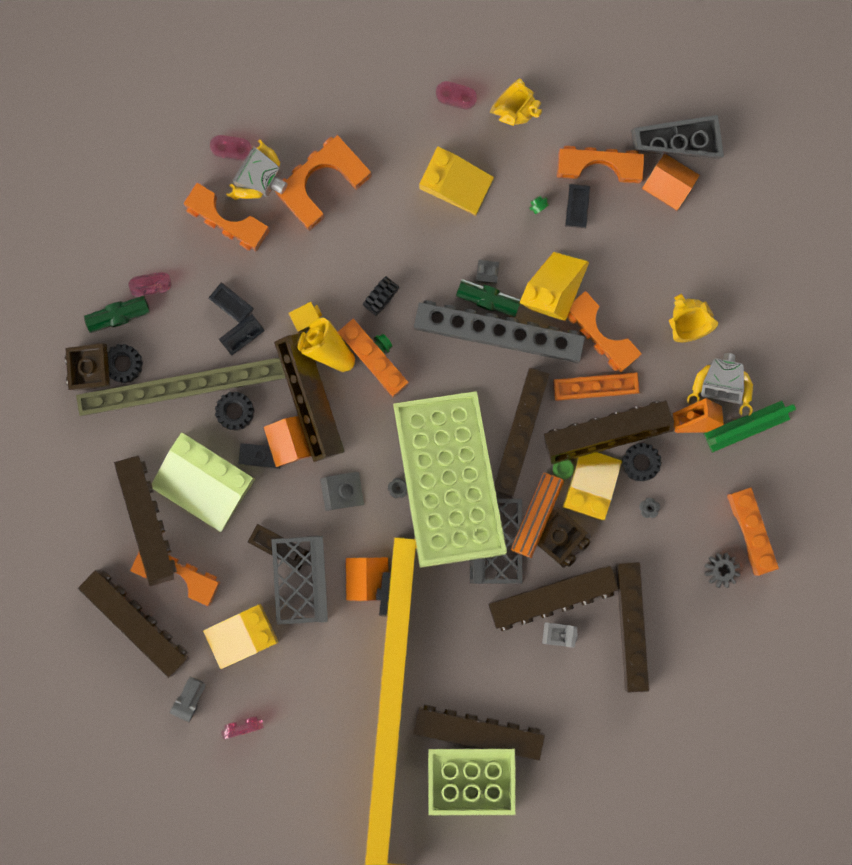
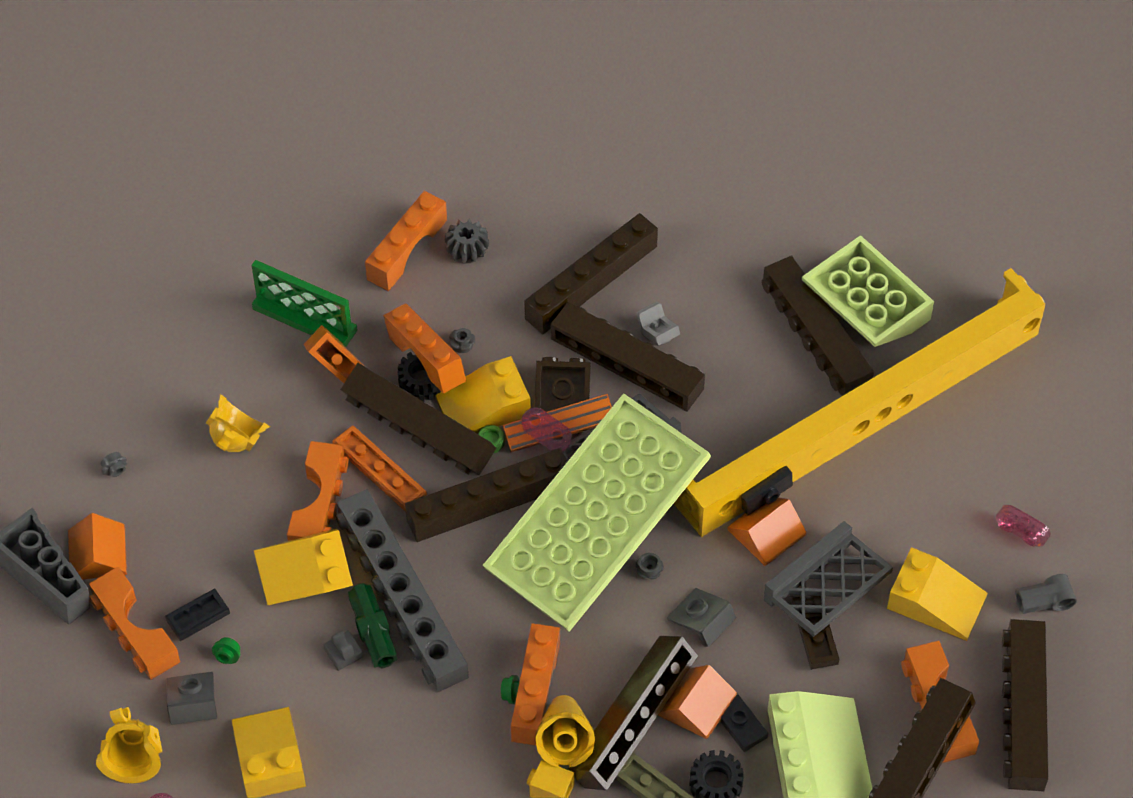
camera: 130 degrees left, 30 degrees down
(380, 296) = (461, 722): black tyre -> none
(526, 165) = (191, 698): none -> dark grey piece
(536, 501) = (546, 429): none -> clear pink plate
(654, 472) = (440, 361): none -> orange arch
(724, 232) = (113, 464): none -> dark grey plate
(725, 382) = (277, 356): light grey torso -> none

